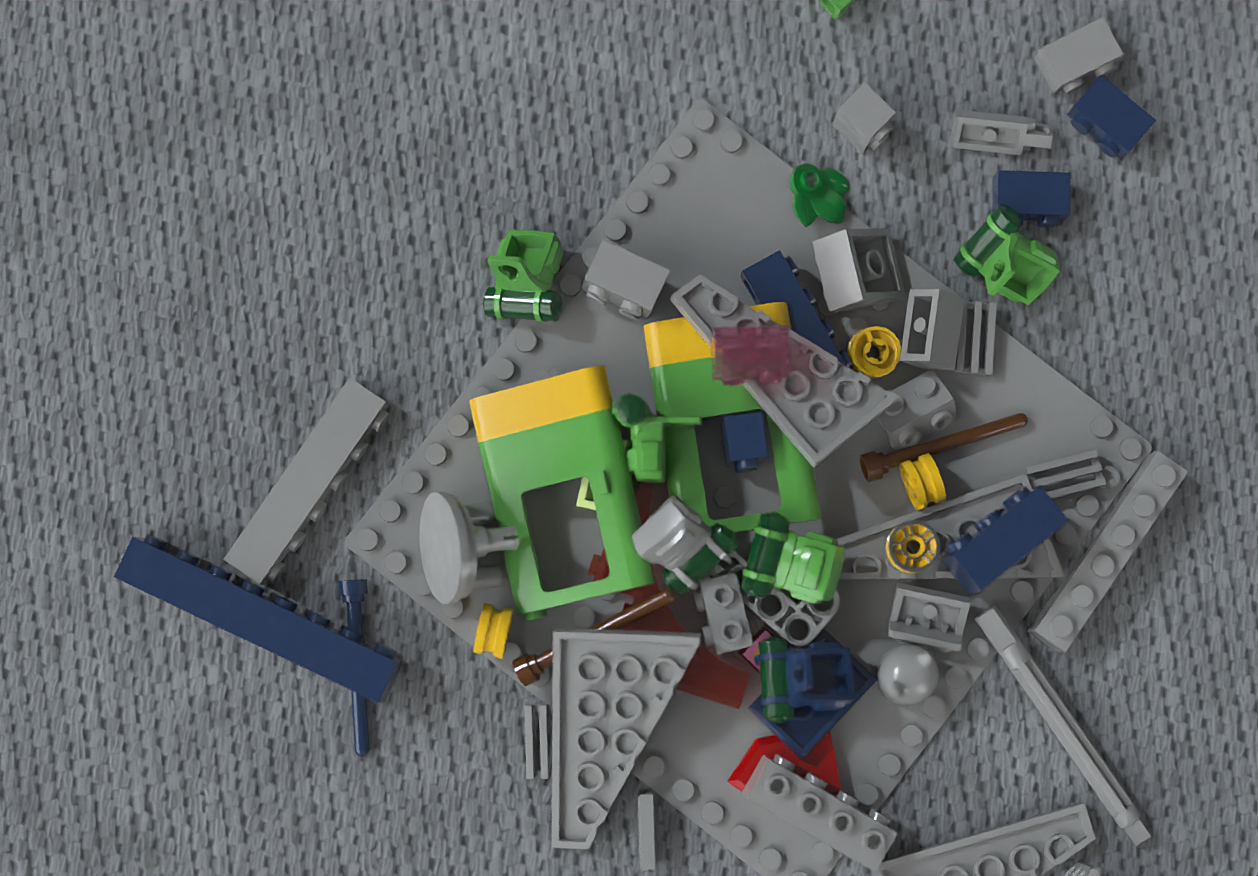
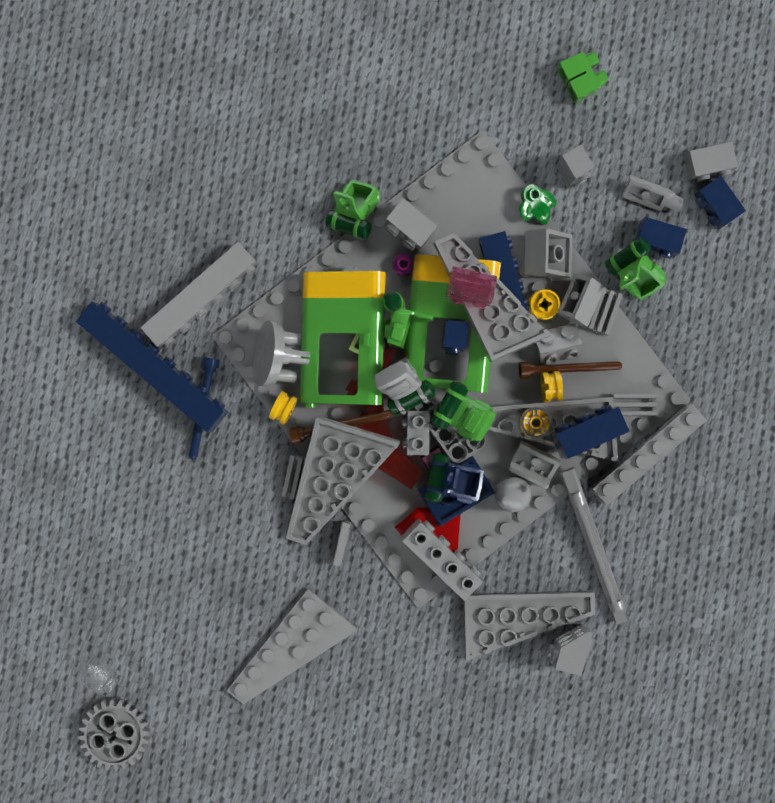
camera: 25 degrees right, 5 degrees up
(624, 356) = (403, 271): none -> magenta plate

